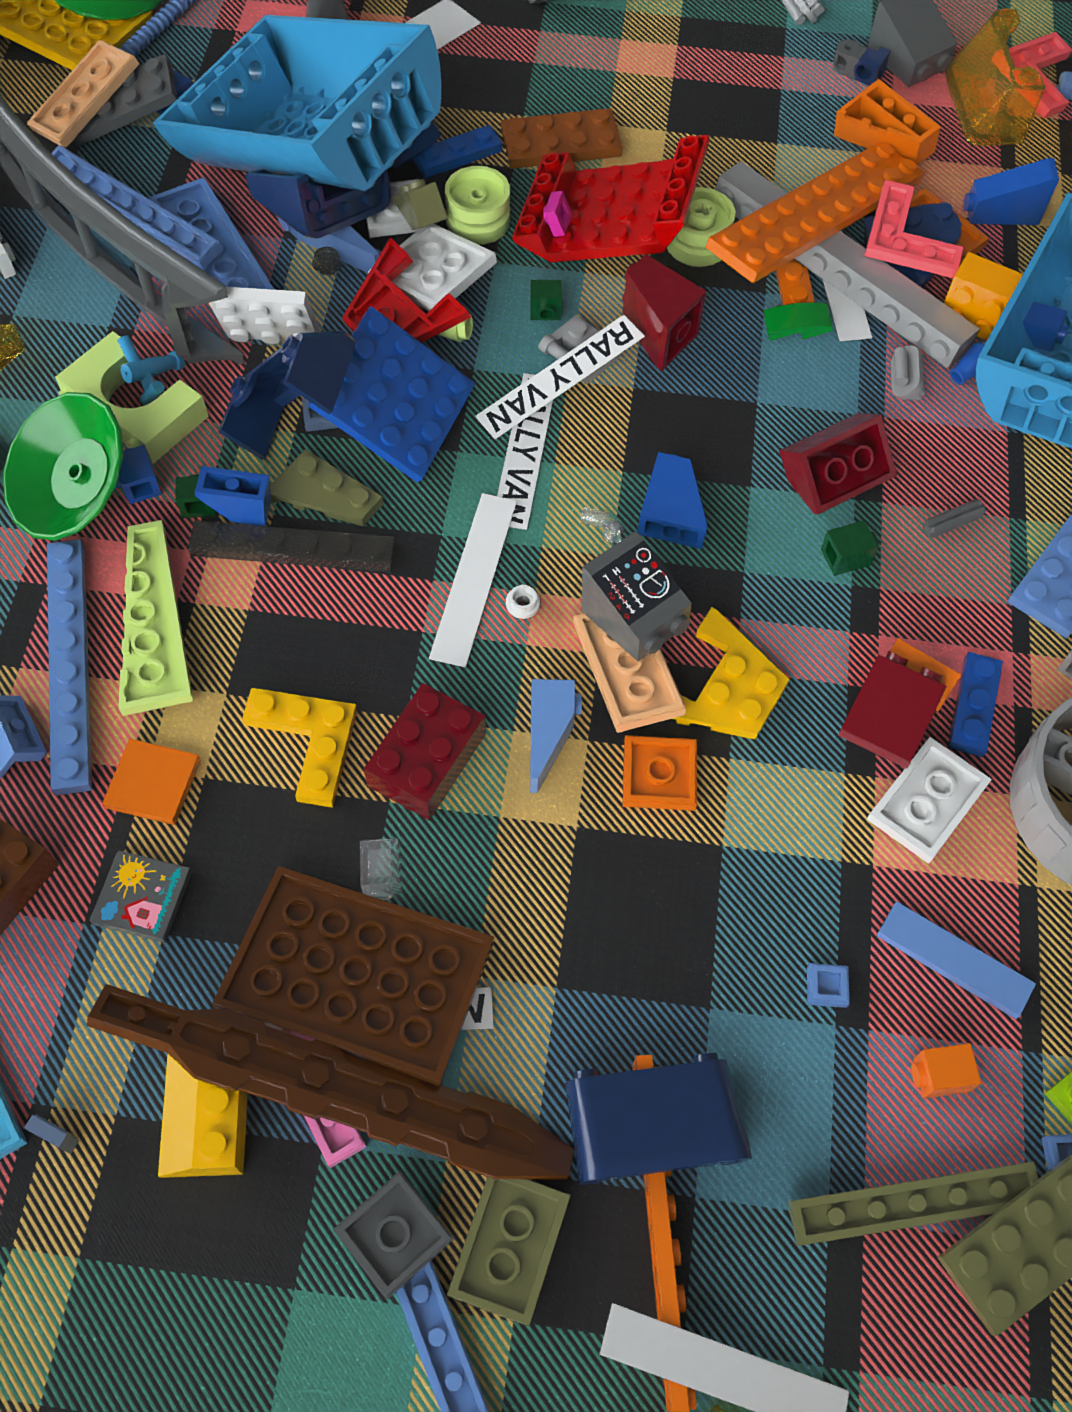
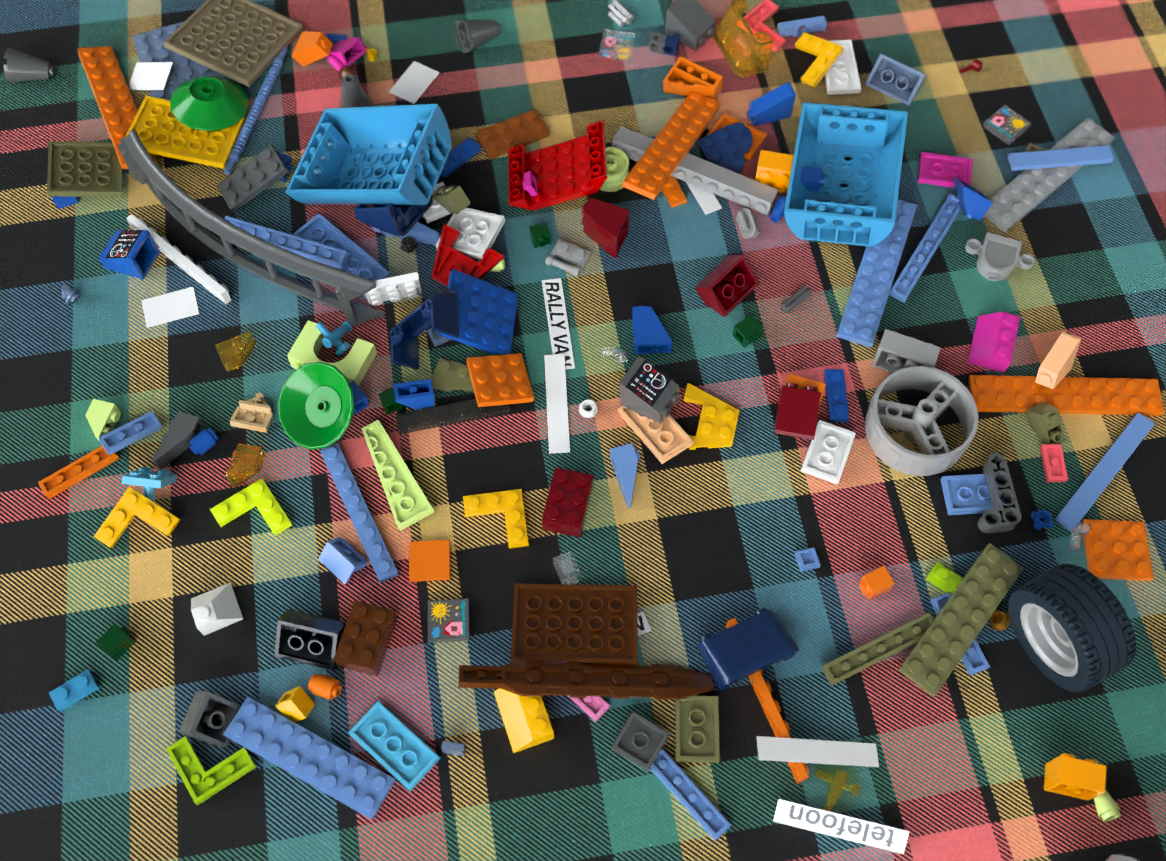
camera: 15 degrees left, 0 degrees up
(82, 93) = (229, 180): light nougat tile -> none
(388, 511) = (499, 380): none -> orange plate
(478, 204) = (483, 188): yellowish green wheel -> none
(559, 376) = (563, 277): white sticker -> none
(660, 773) = (689, 478): orange tile -> none
(781, 47) = (617, 44): none -> clear tile
(807, 318) = (679, 208): green slope -> none
(892, 245) = (724, 155): coral plate -> none
(956, 960) = (864, 528): medium blue tile -> none

